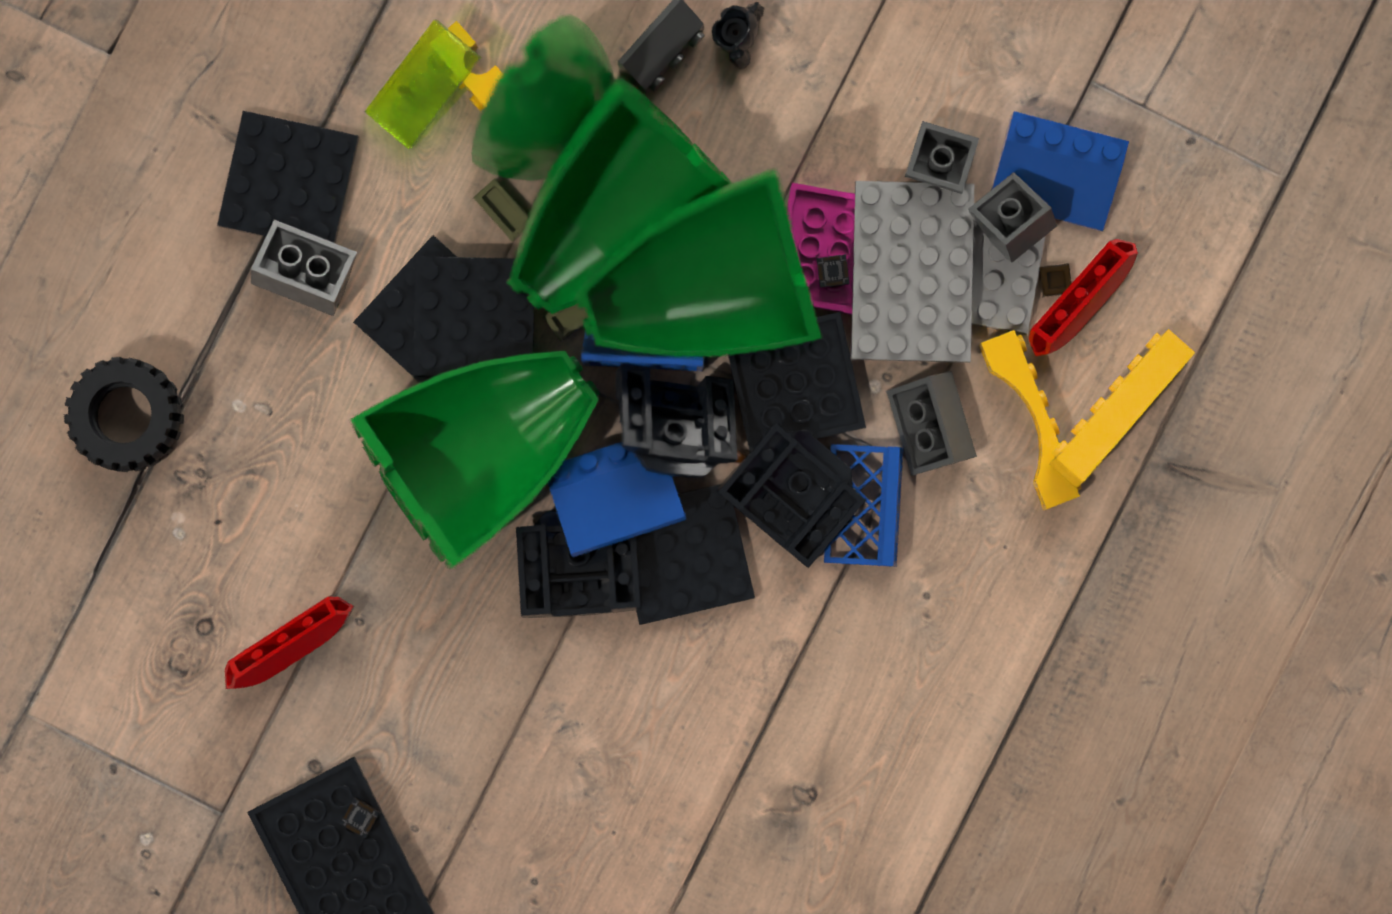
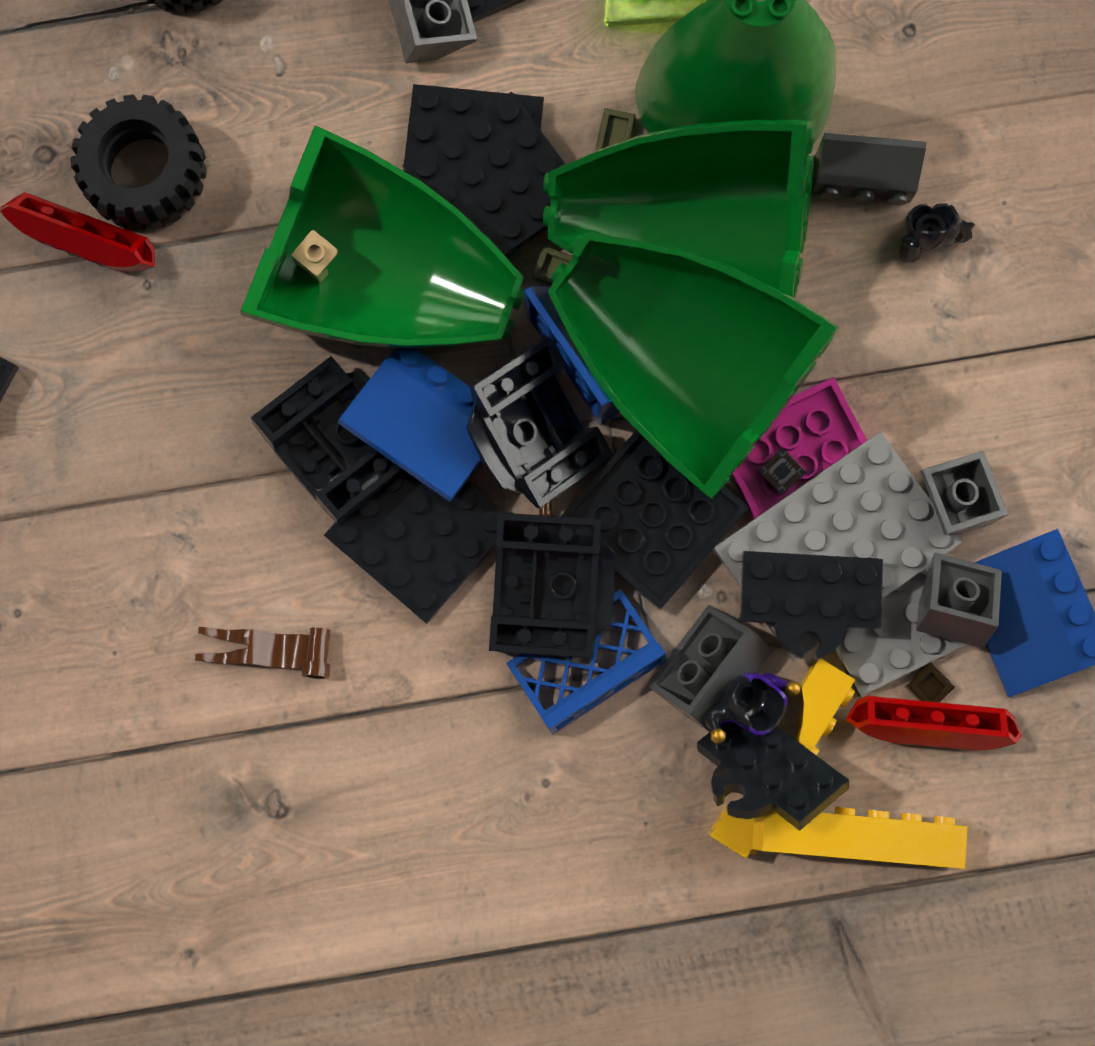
camera: 55 degrees right, 5 degrees down
(230, 551) = (113, 130): none -> black tyre
(435, 485) = (314, 256): none -> tan bracket
(695, 718) = (274, 650): none -> reddish brown flag
(935, 318) = (811, 596): none -> black plate
(978, 414) = (752, 703): none -> black piece
(1031, 437) = (771, 775): none -> black plate

